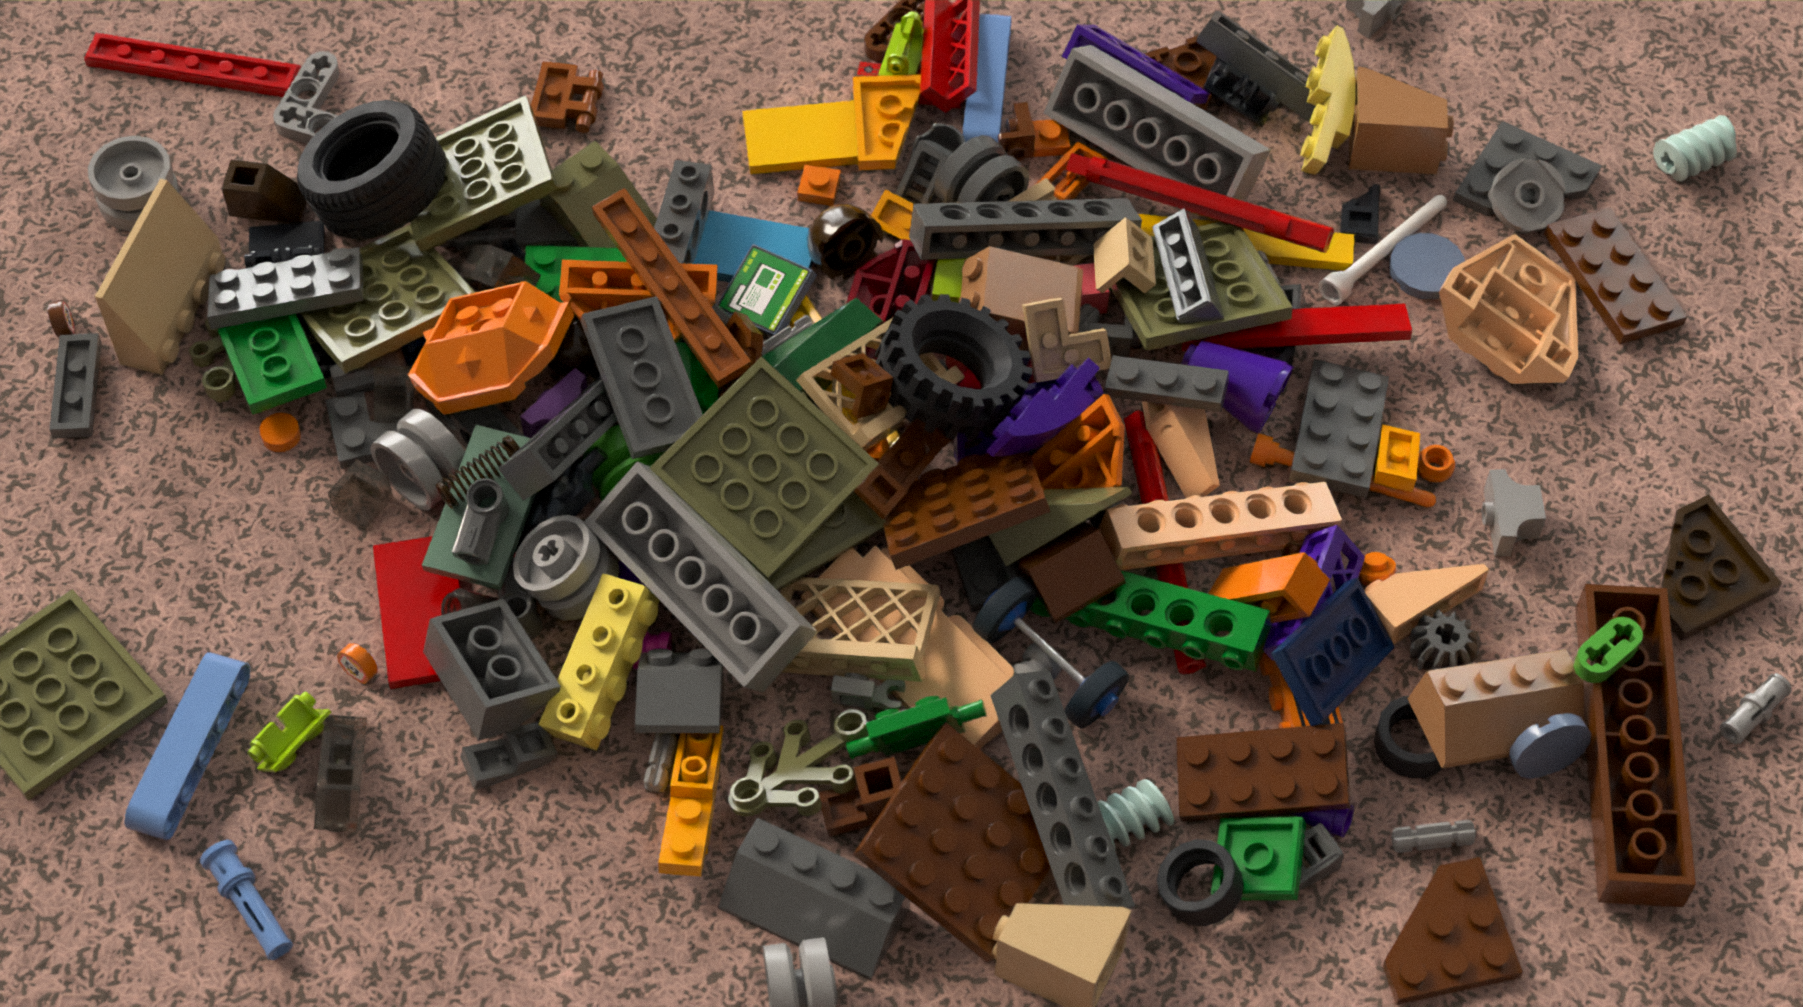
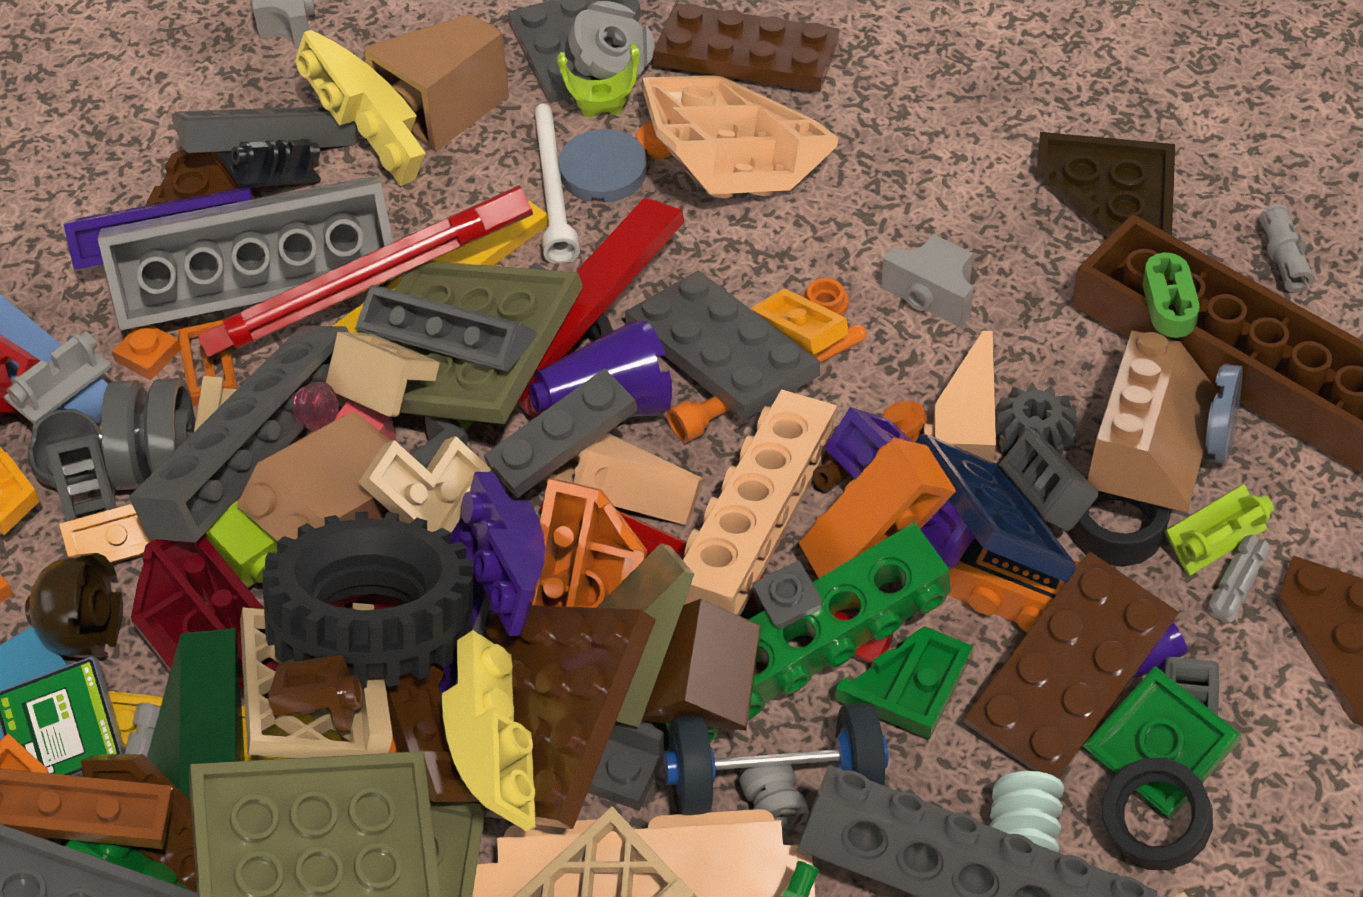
camera: 50 degrees left, 5 degrees down
(916, 484) = (481, 731): none -> light yellow slope
(983, 111) = (52, 384): none -> light grey hinge
(1020, 134) = (125, 360): reddish brown bracket -> none
(1072, 248) = (315, 405): none -> clear pink plate
(1160, 579) = (786, 595): none -> dark grey bracket
(1182, 696) = (911, 682): none -> green wing
(1362, 216) = (499, 173): black tile -> none
(1393, 675) = (1050, 481): none -> dark grey slope
(1459, 799) = (1218, 528): none -> lime hinge
(1477, 218) = (604, 94): none -> lime helmet

